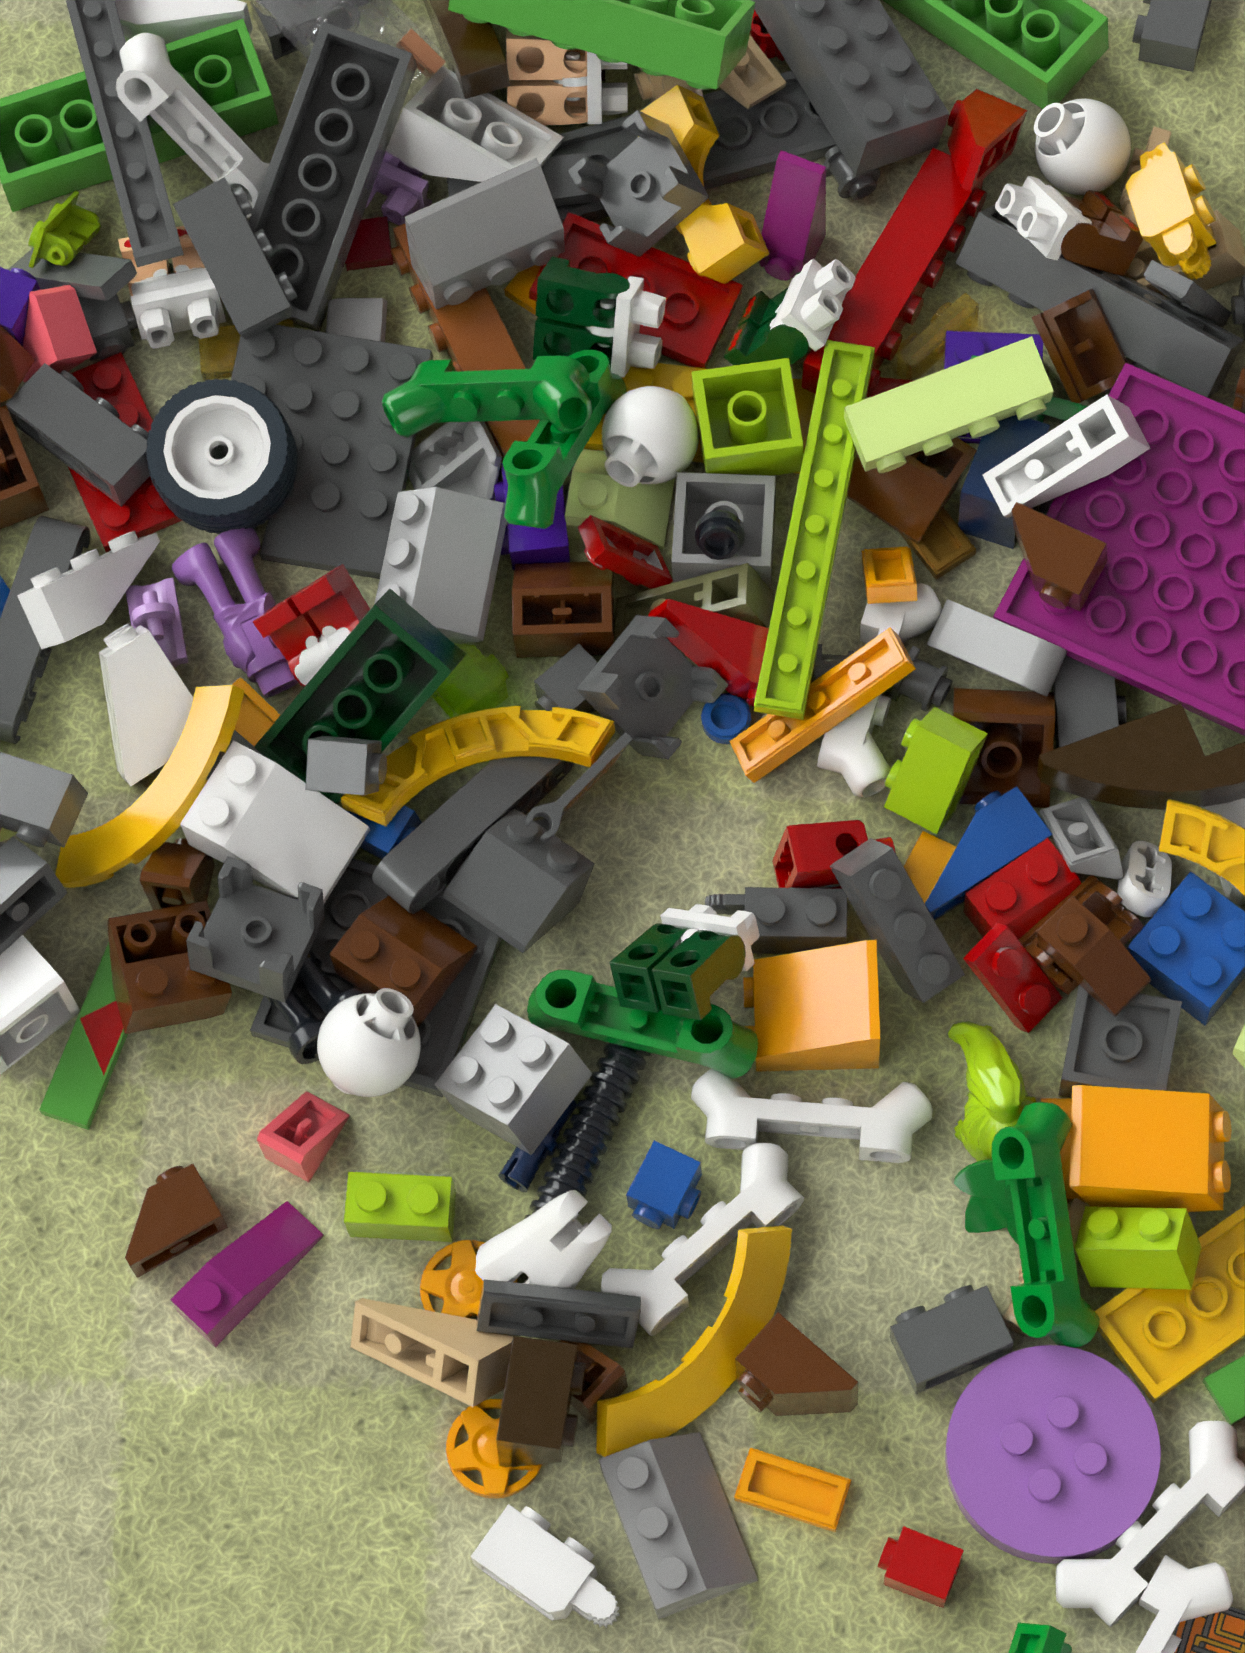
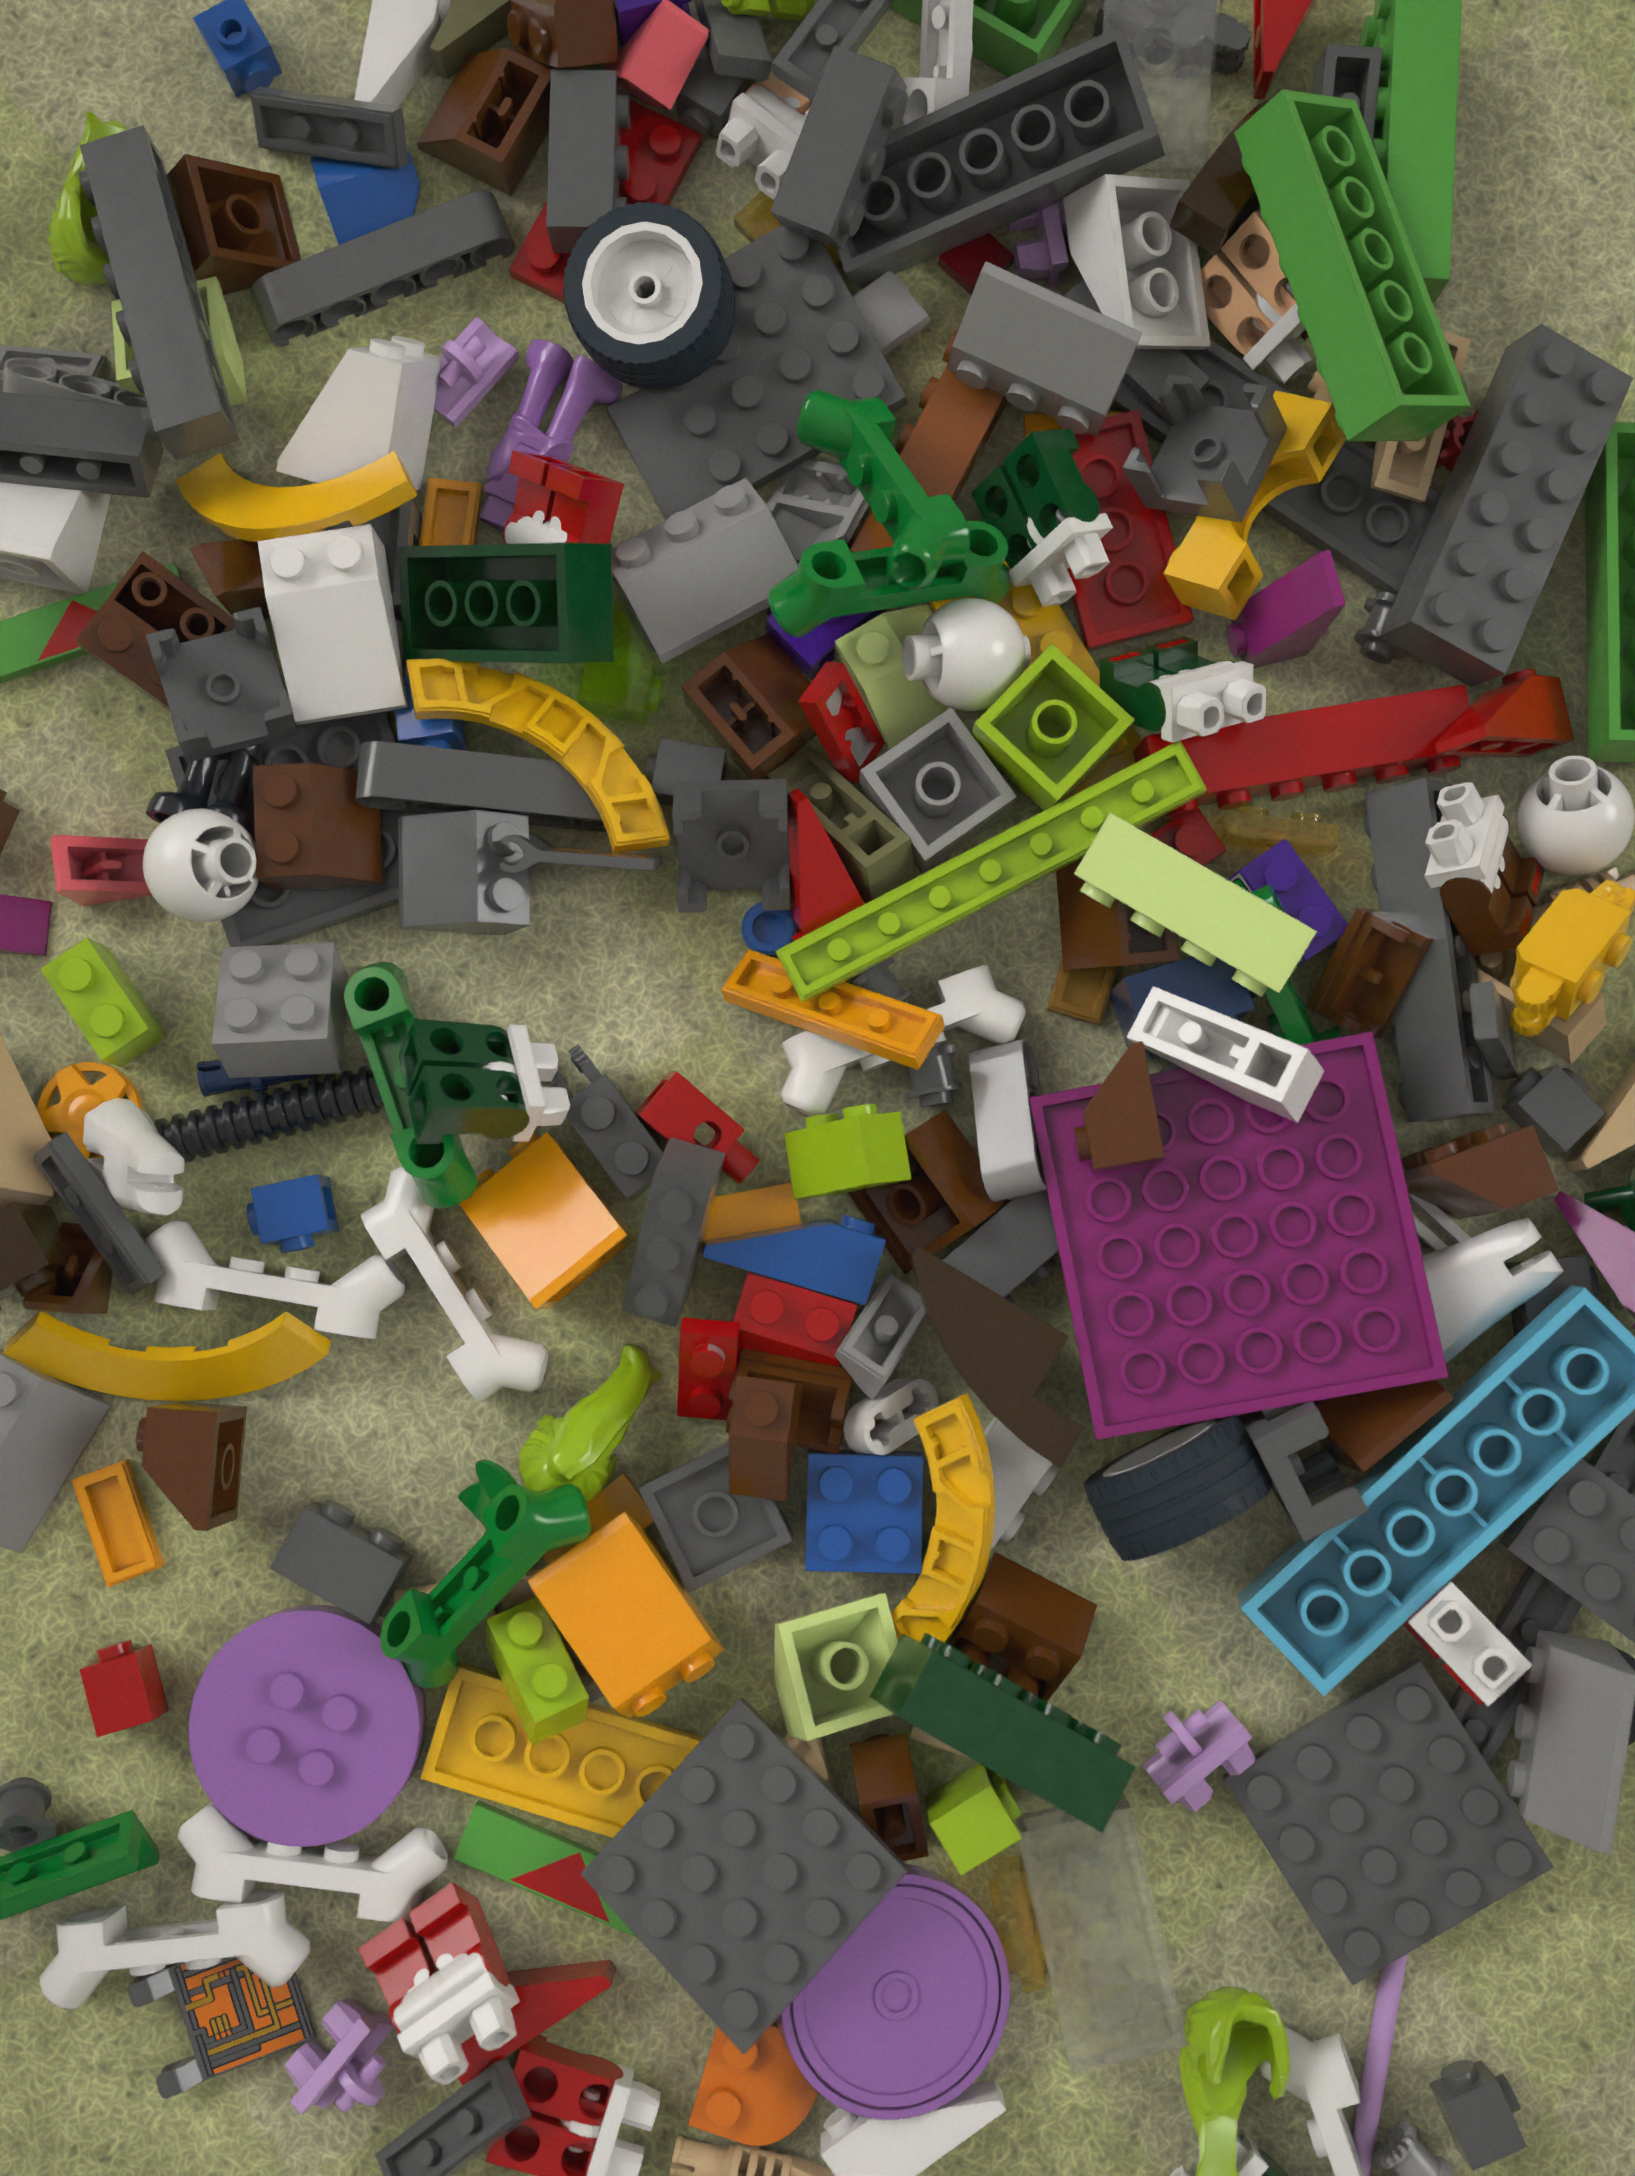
camera: 45 degrees right, 15 degrees up
(85, 596) = (443, 288): white slope -> none
(345, 765) = (422, 639): brick -> none
(426, 58) = (1177, 147): nougat tile -> none
(719, 534) = (913, 792): black plate -> none
(889, 575) = (1006, 970): light orange tile -> none

